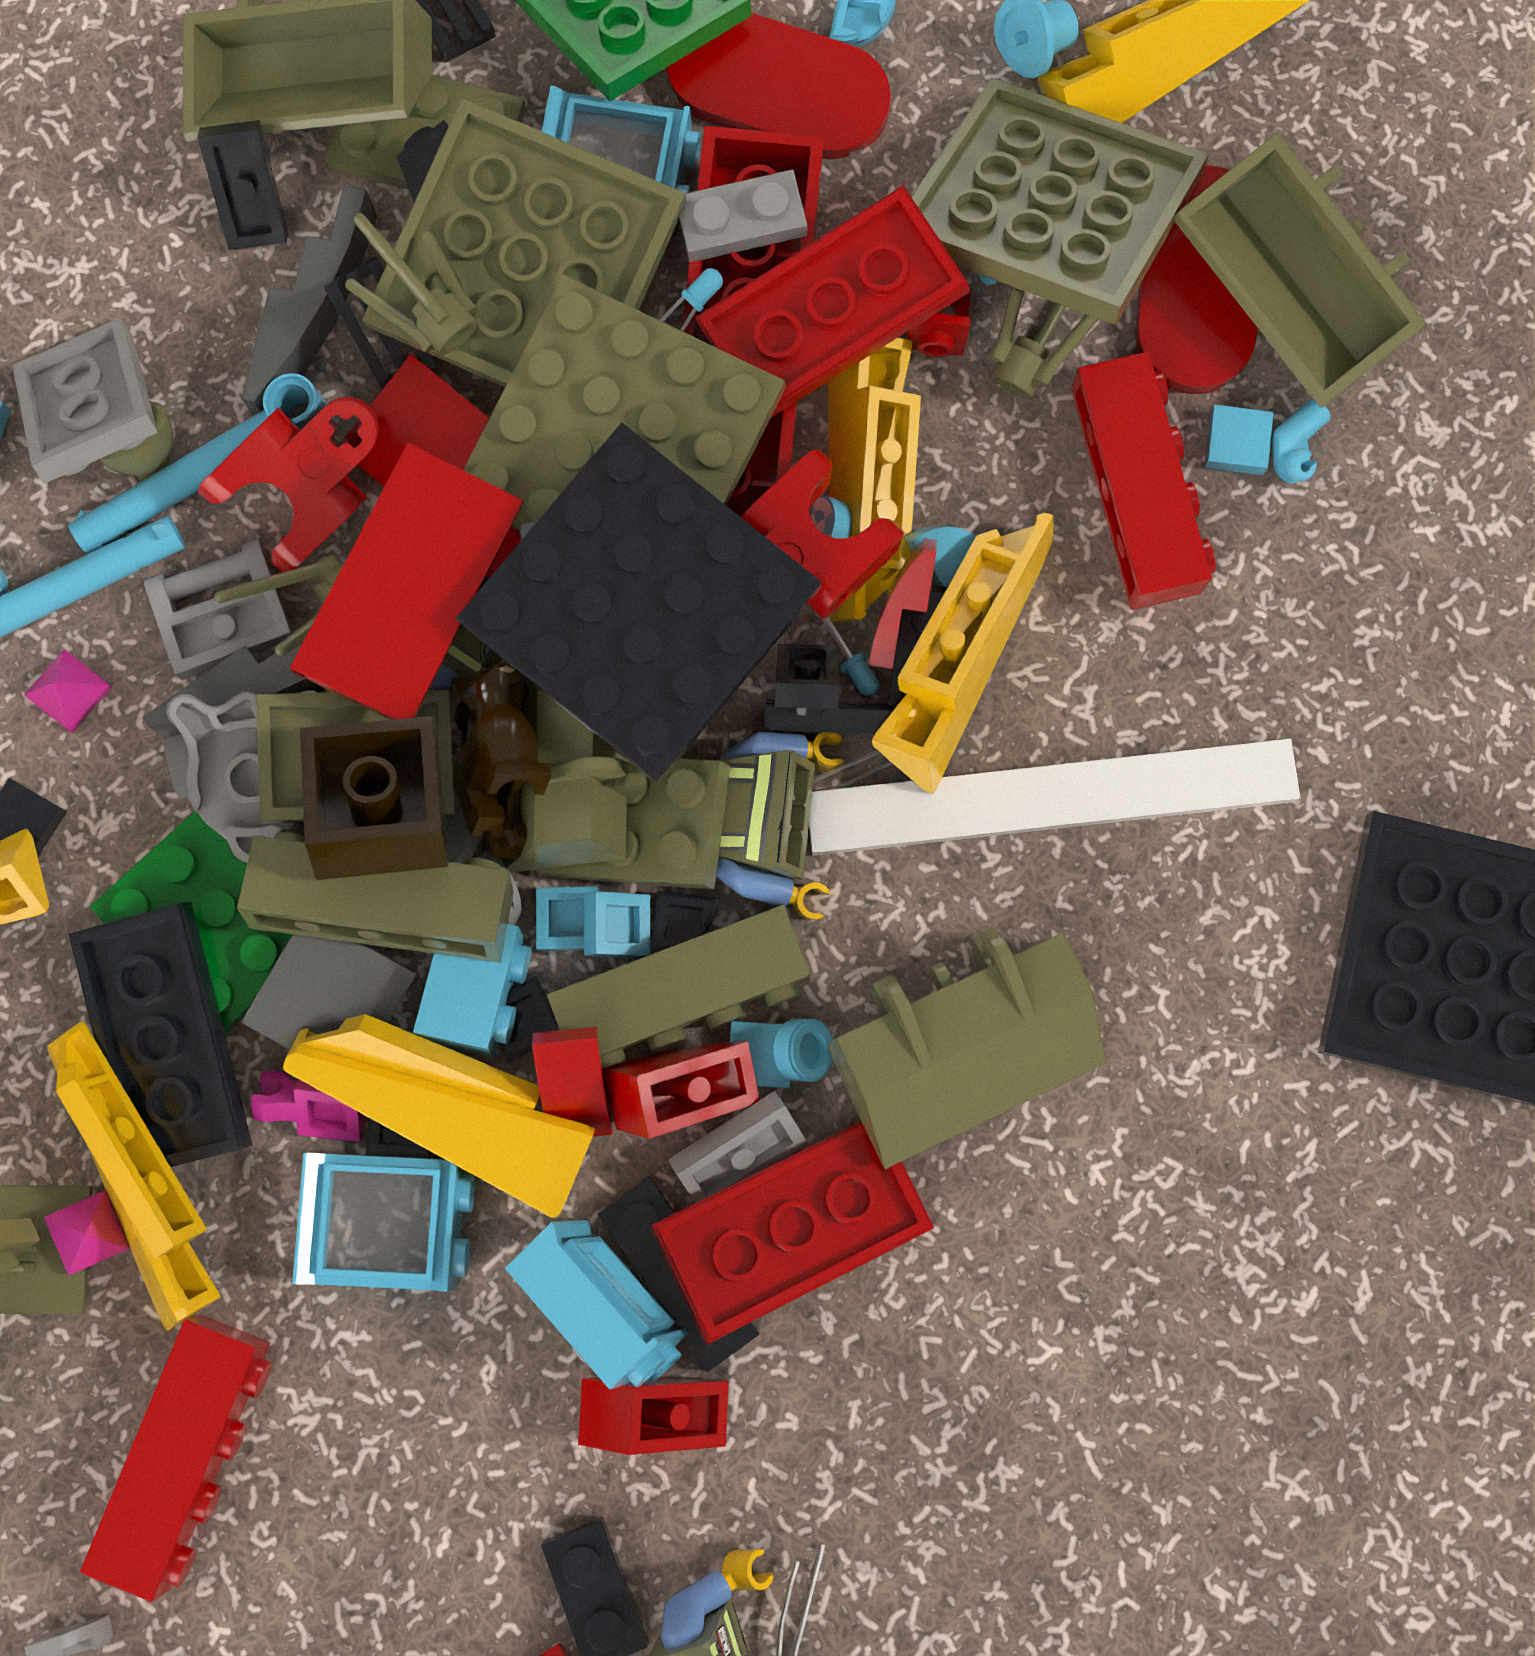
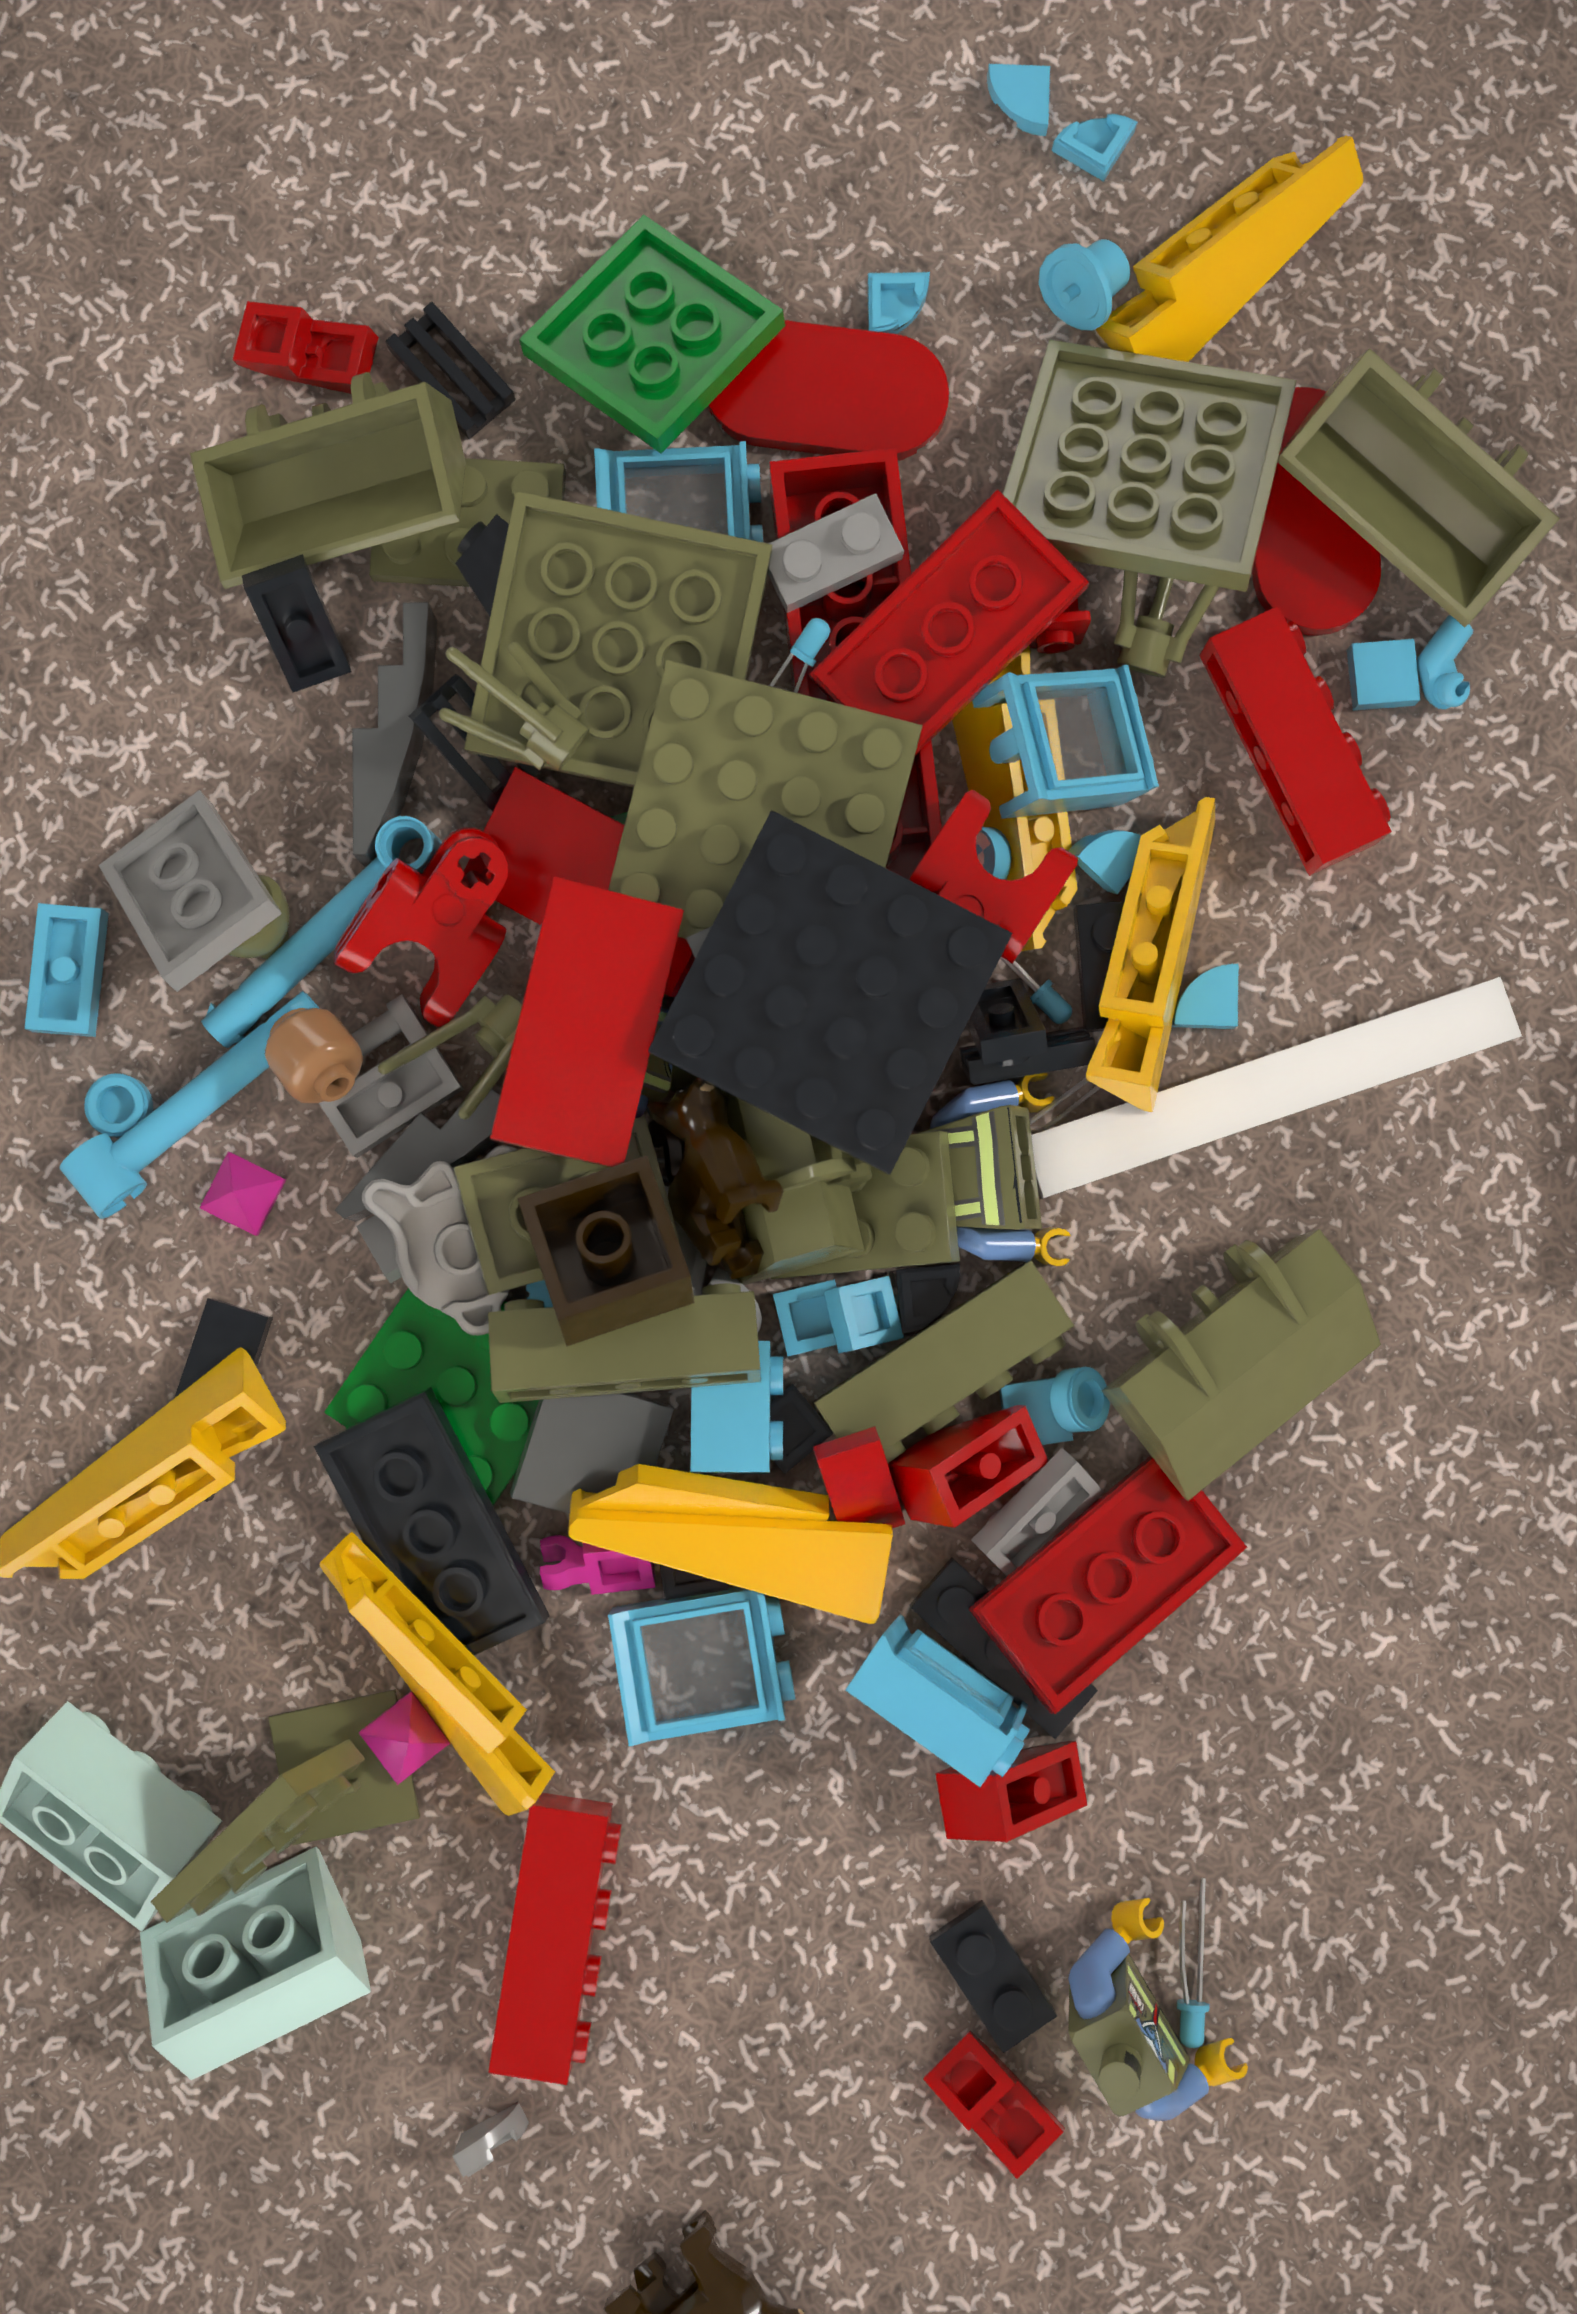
camera: 15 degrees left, 5 degrees up
(158, 567) = (313, 1055): none -> medium nougat head
(908, 591) = (1085, 911): red slope -> none
(929, 433) = (1074, 738): none -> medium azure window
(1010, 703) = (1210, 1000): none -> medium azure tile

